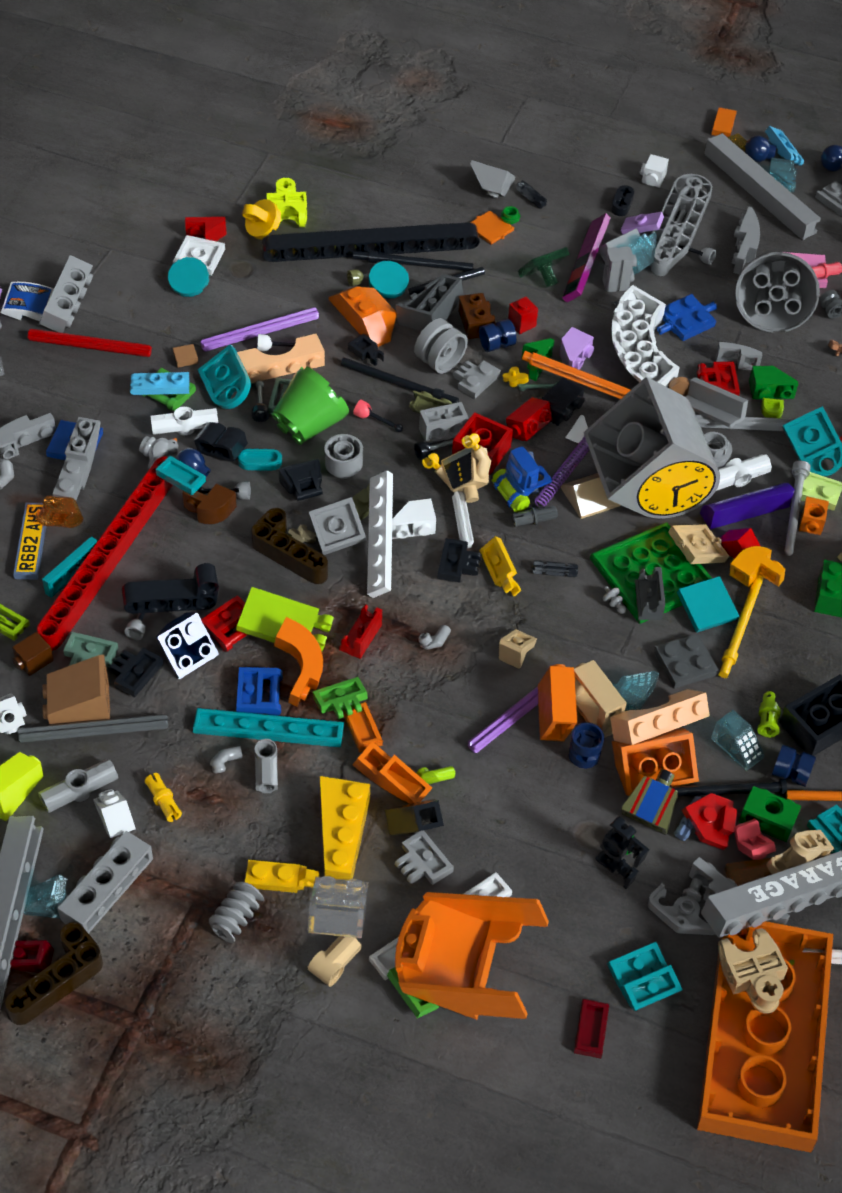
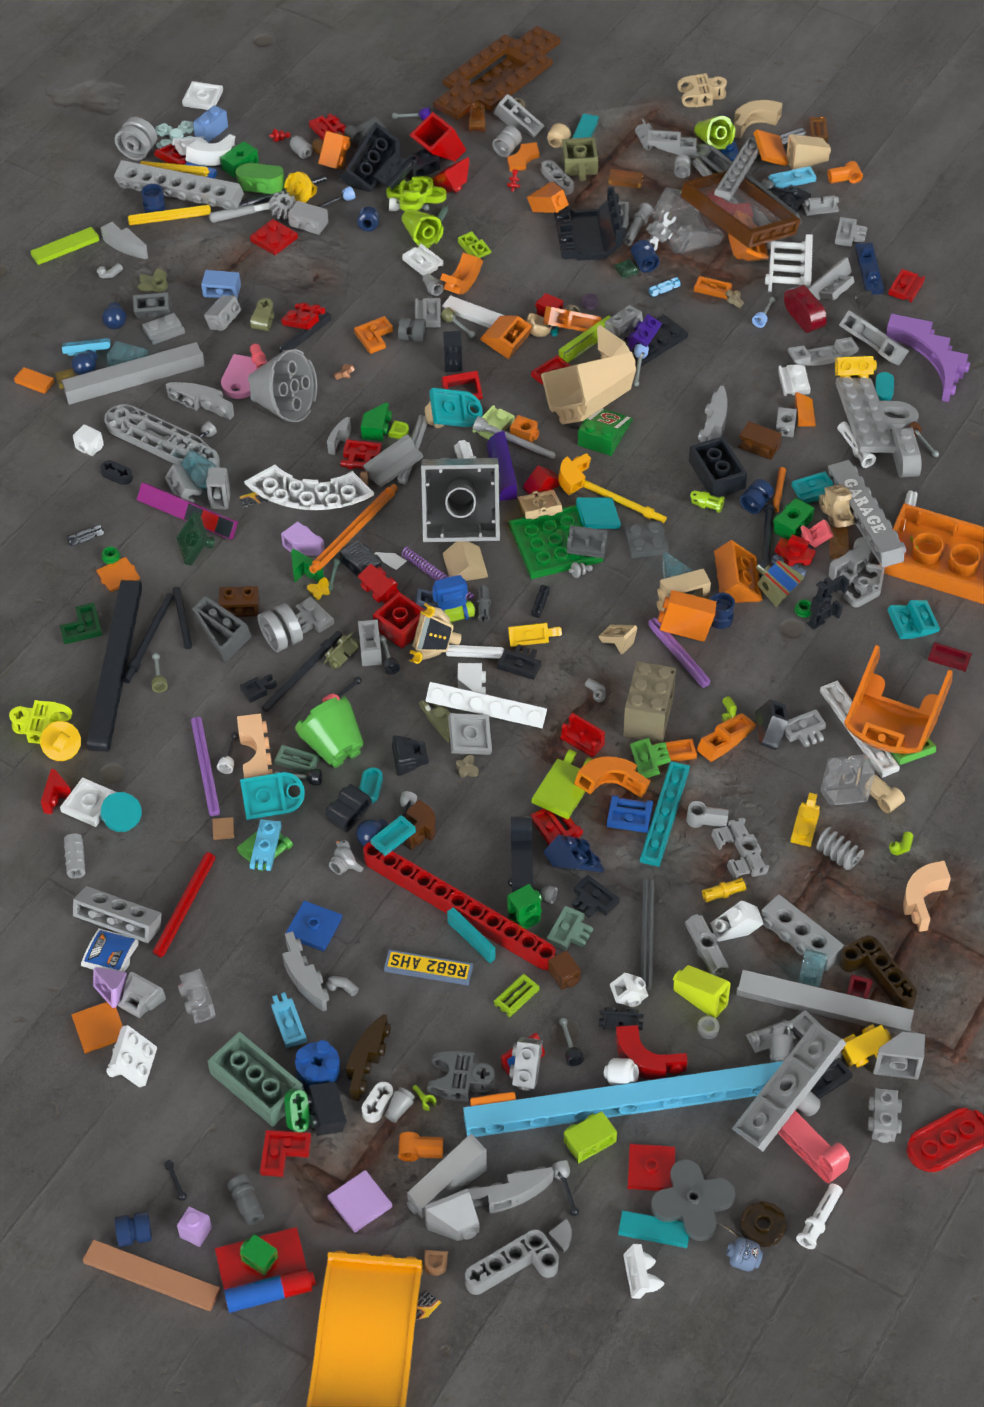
camera: 75 degrees left, 0 degrees up
(60, 511) = (406, 938): clear orange piece -> none
(78, 693) = (618, 934): medium nougat slope -> none
(79, 458) = (348, 920): light grey slope -> none
(102, 601) = (525, 907): none -> green brick
(133, 256) = (74, 855): none -> light grey axle
(183, 421) = (313, 843): white piece -> none
(183, 1008) = (924, 881): none -> light nougat arch
(208, 823) = (750, 859): none -> light grey piece
(223, 756) = (691, 846): light grey arm -> none
(256, 989) = (902, 847): none -> lime arm
(271, 540) = (492, 771): dark brown beam -> none
(343, 456) = (392, 717): light grey piece -> none
(343, 821) = (774, 772): yellow wedge -> none
(366, 312) = (206, 682): orange wedge -> none
(389, 279) = (171, 657): teal tile -> none
(412, 680) = (649, 702): none -> dark tan container
(415, 215) = (85, 628): none -> dark green plate
(493, 179) = (59, 557): light grey slope -> none
(497, 335) = (270, 589): dark blue wheel -> none
(523, 315) = (250, 567): red brick -> none
(643, 222) = (158, 462): lavender plate -> none
(643, 724) = (700, 544): light nougat arch -> none
(687, 317) = (282, 455): blue plate -> none
(738, 740) = (725, 524): clear light blue slope -> none
(755, 971) = (930, 546): tan piece -> none

